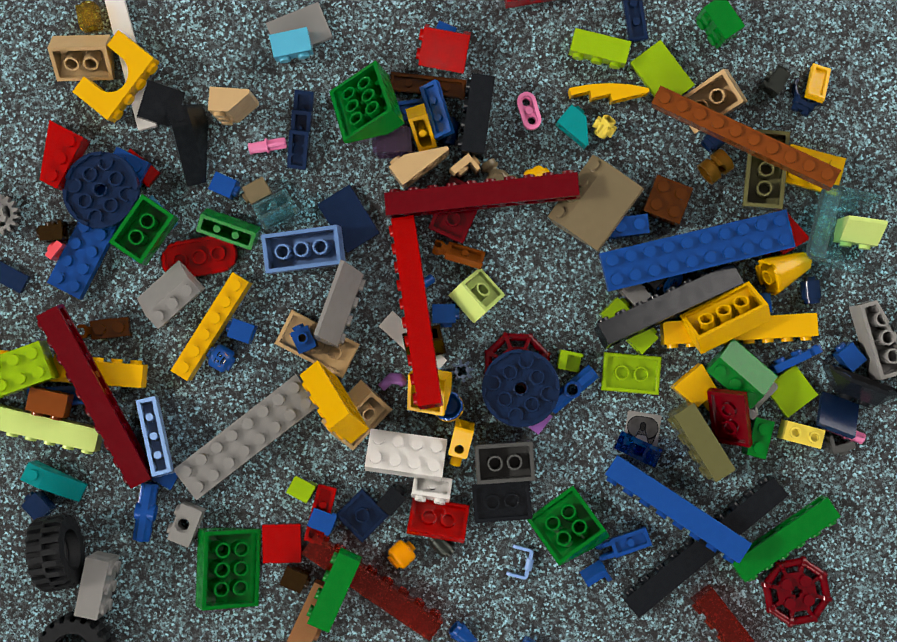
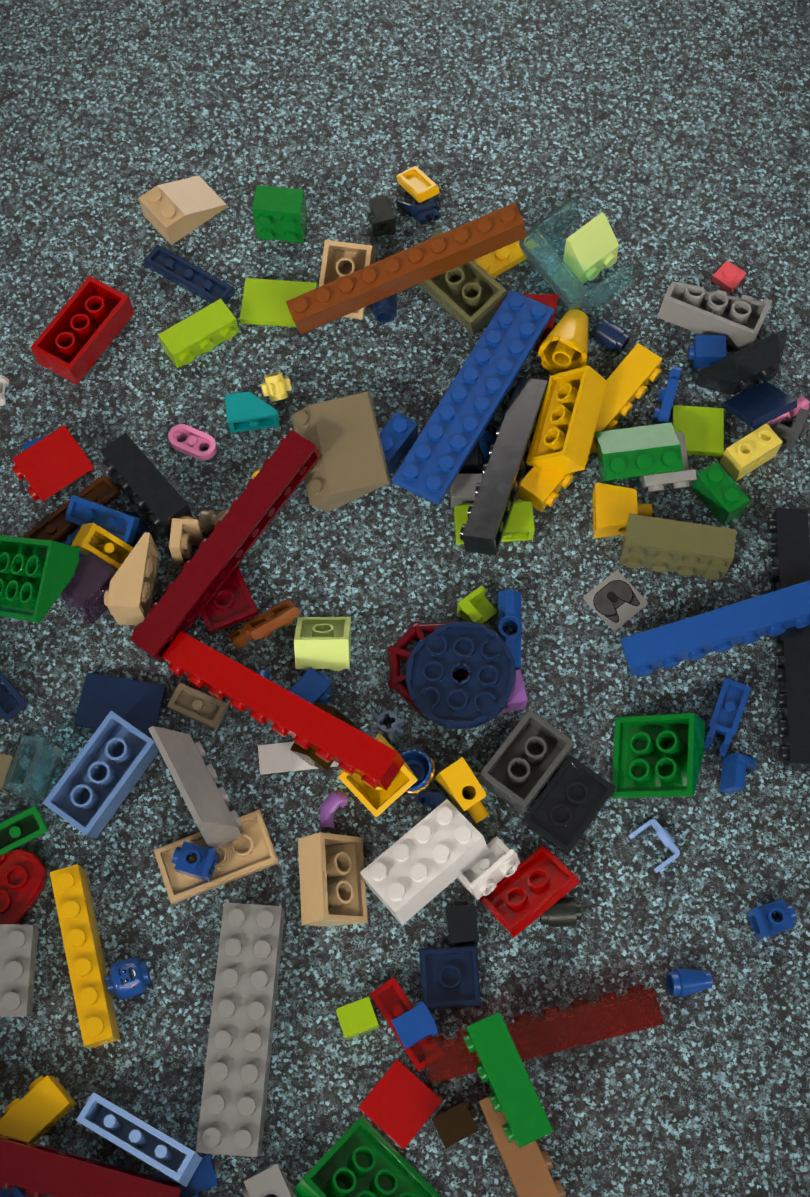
camera: 45 degrees left, 20 degrees down
(241, 330) = (121, 926): blue brick -> none
(333, 402) = (292, 881): yellow brick -> none
(383, 260) = (197, 706): none -> dark tan plate
(401, 554) = (533, 969): light orange head -> none
(442, 428) = (430, 799): none -> dark blue tile
(614, 92) = (250, 354): yellow slope -> none
(631, 373) = (545, 562): lime tile -> none
(638, 449) = (632, 616): clear blue slope -> none
(666, 200) = (401, 388): reddish brown brick -> none
(718, 164) = (411, 322): pearl gold wheel -> none
(730, 416) = (674, 493): dark red plate -> none

